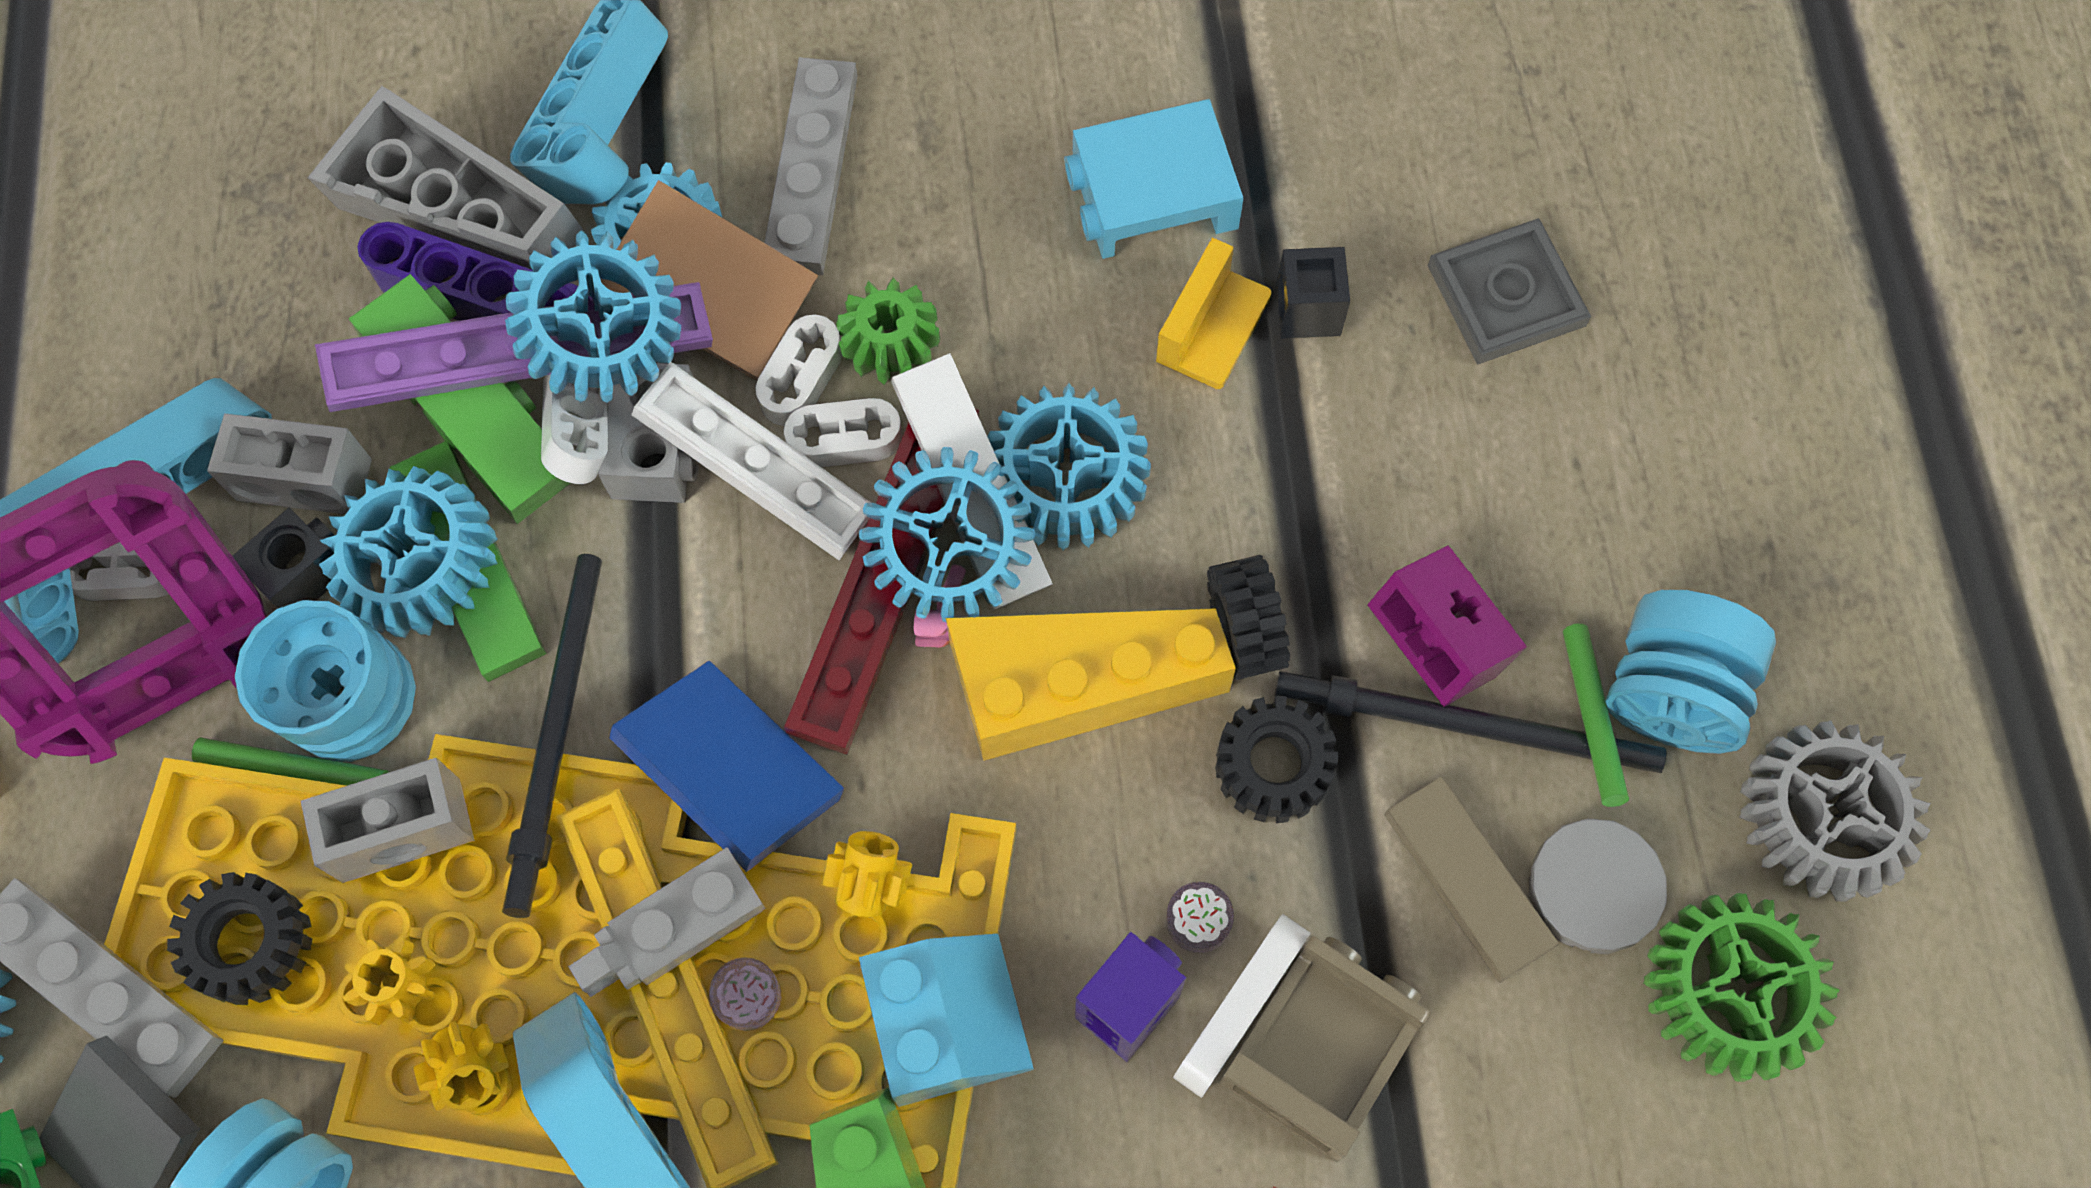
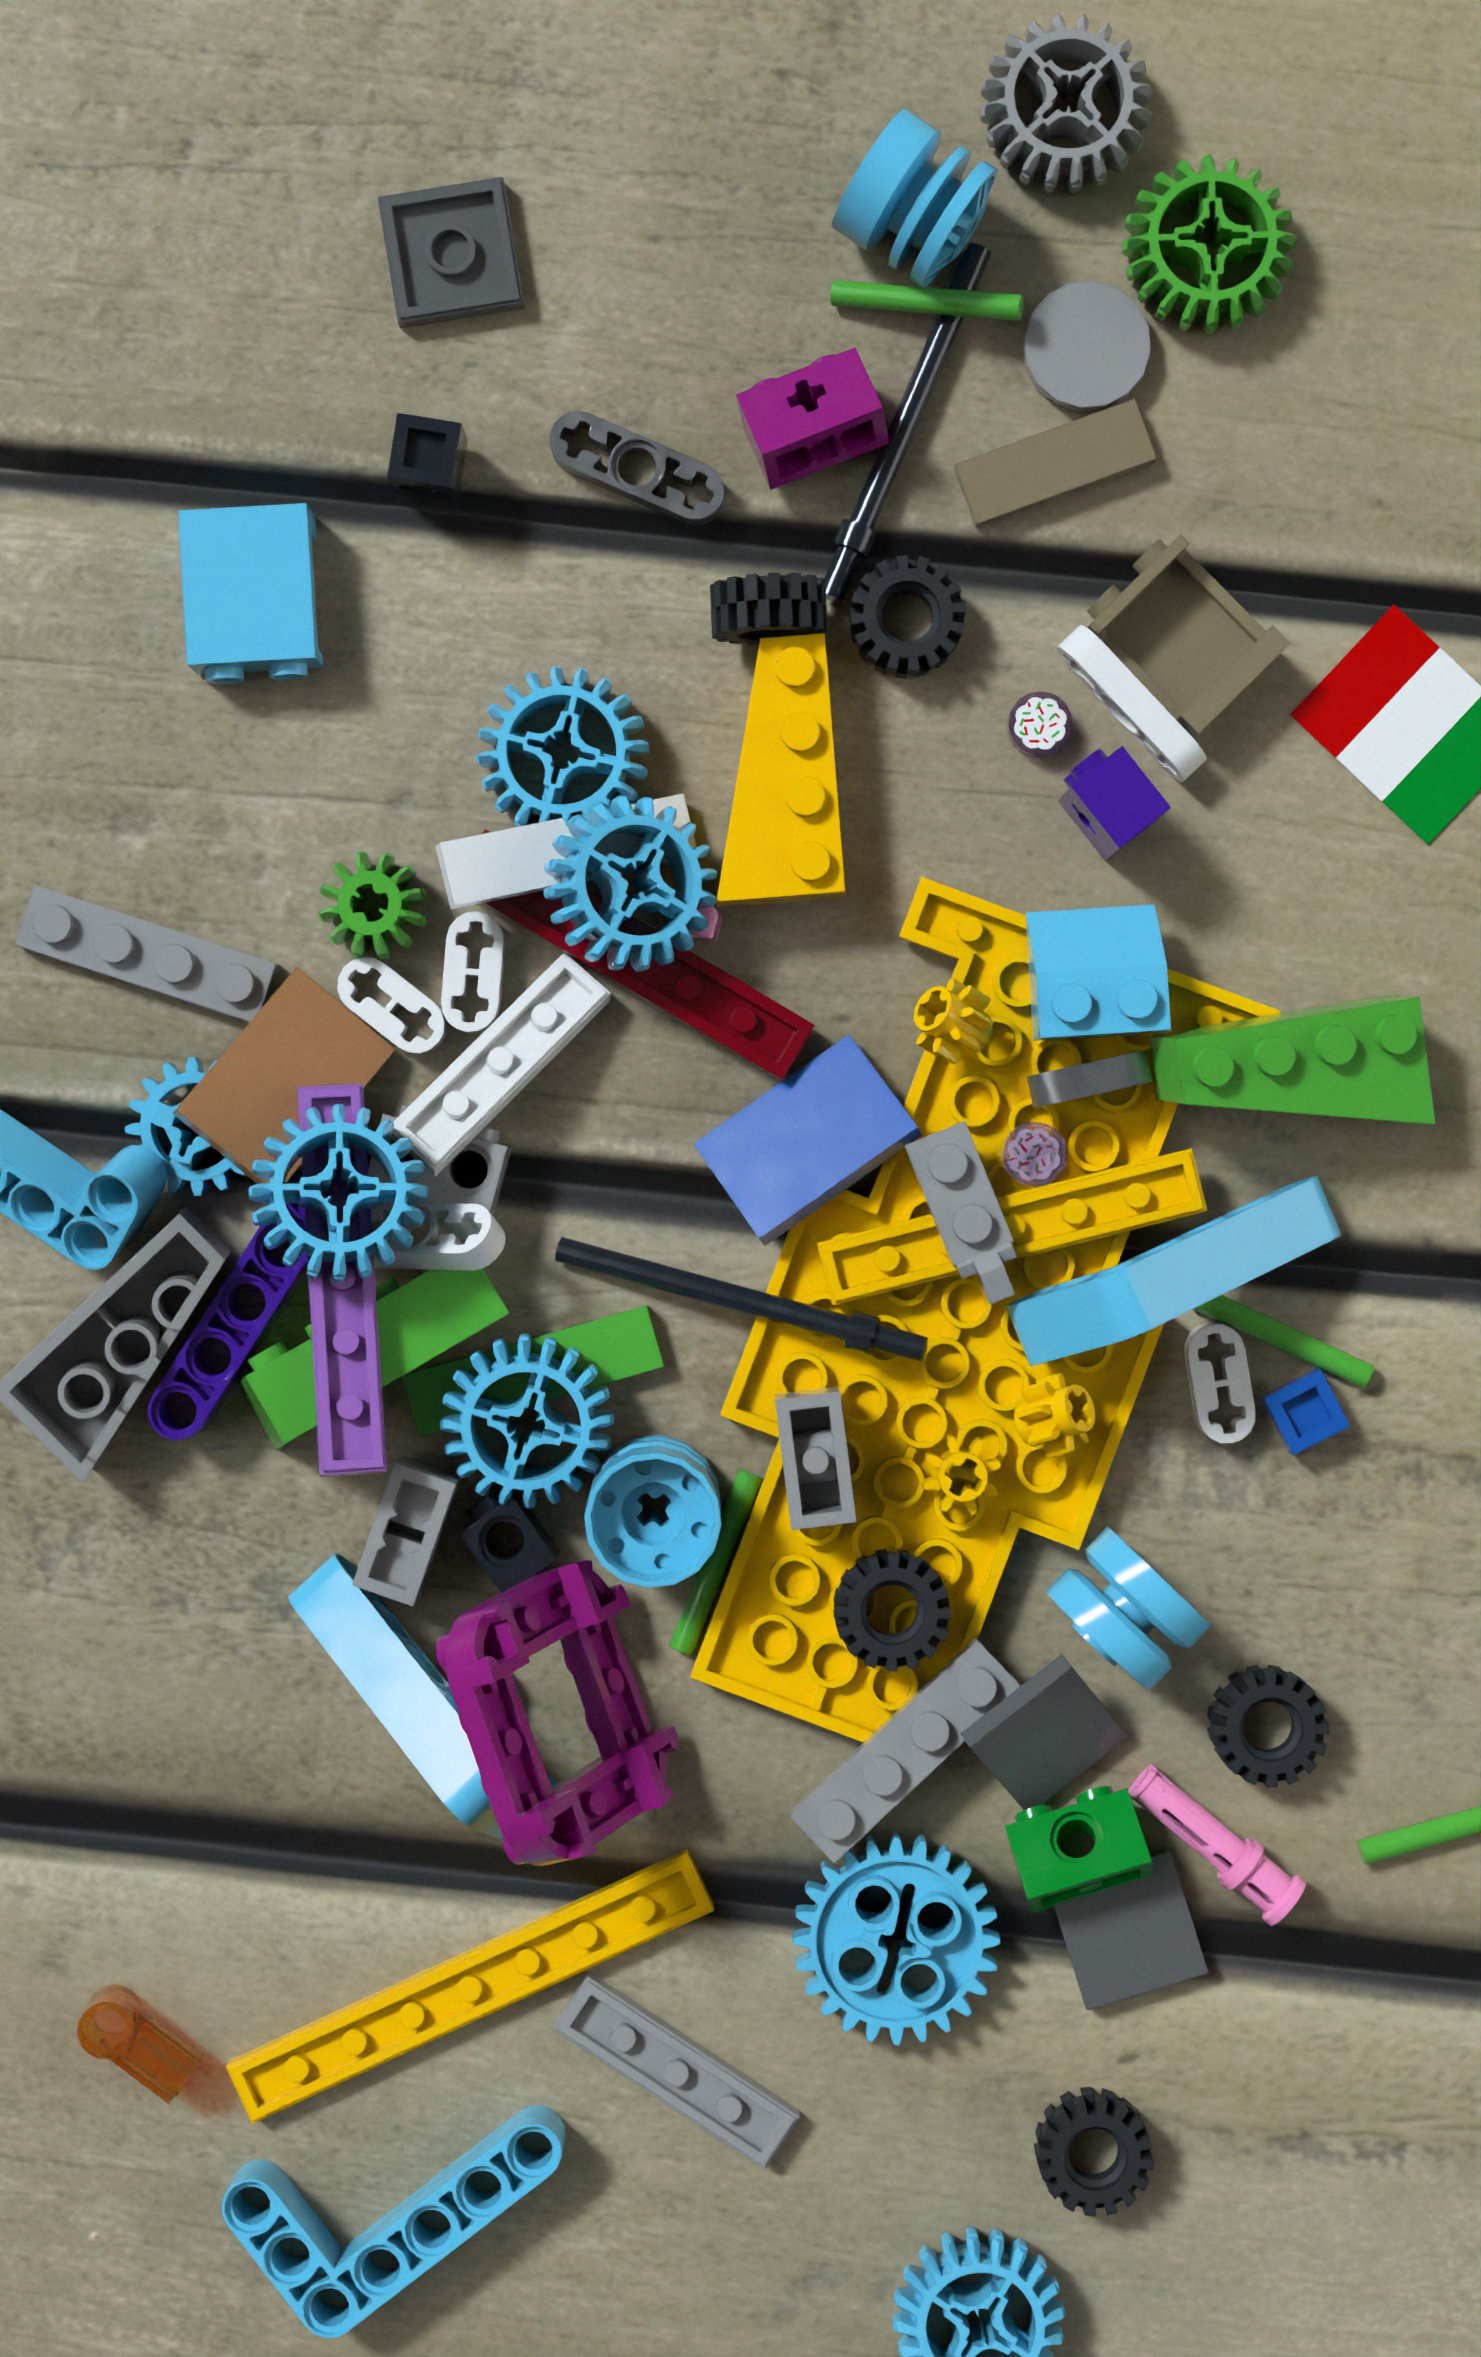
camera: 85 degrees left, 20 degrees up
(831, 1033) = (1089, 1079): none -> flat silver beam
(1211, 319) = (424, 566): yellow panel -> none
(1374, 466) = (587, 463): none -> flat silver beam

